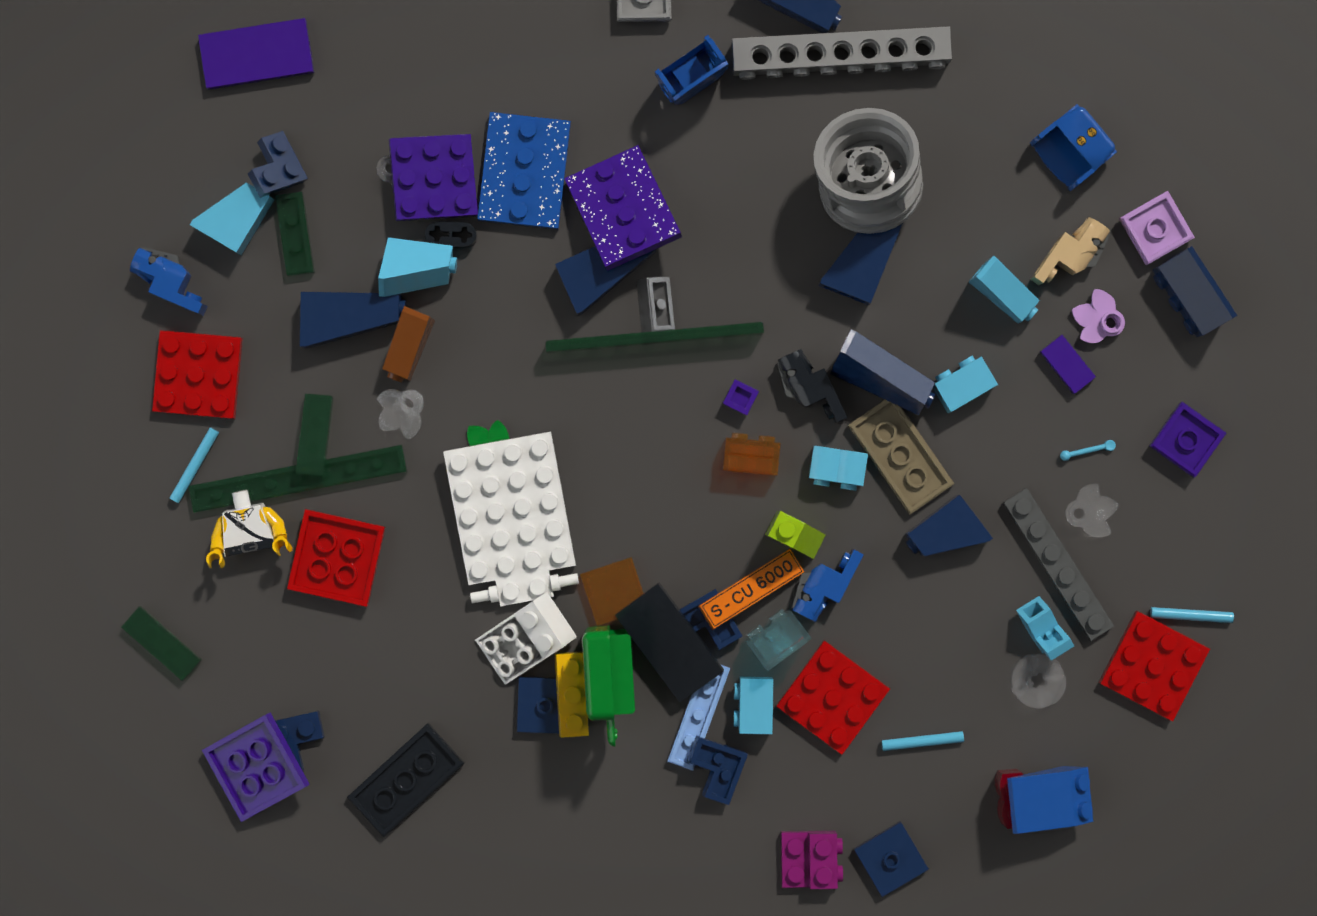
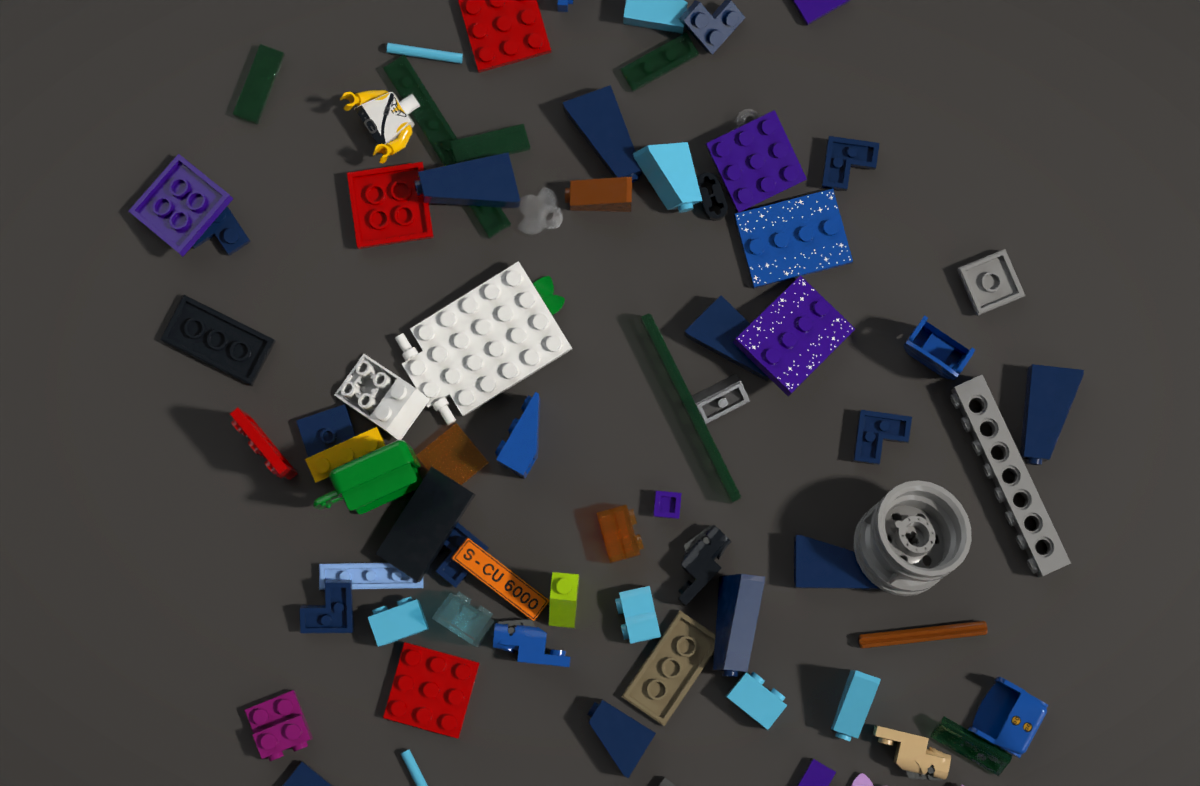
camera: 70 degrees right, 5 degrees down
(346, 467) = (472, 183): none -> dark blue slope
(460, 87) = (843, 154): none -> dark blue plate
(530, 774) = (262, 444): none -> red plate
(629, 517) = (522, 445): none -> blue slope
(744, 165) = (876, 427): none -> dark blue plate
(961, 198) = (922, 634): none -> dark orange axle
(1087, 194) = (971, 746): none -> clear green tile

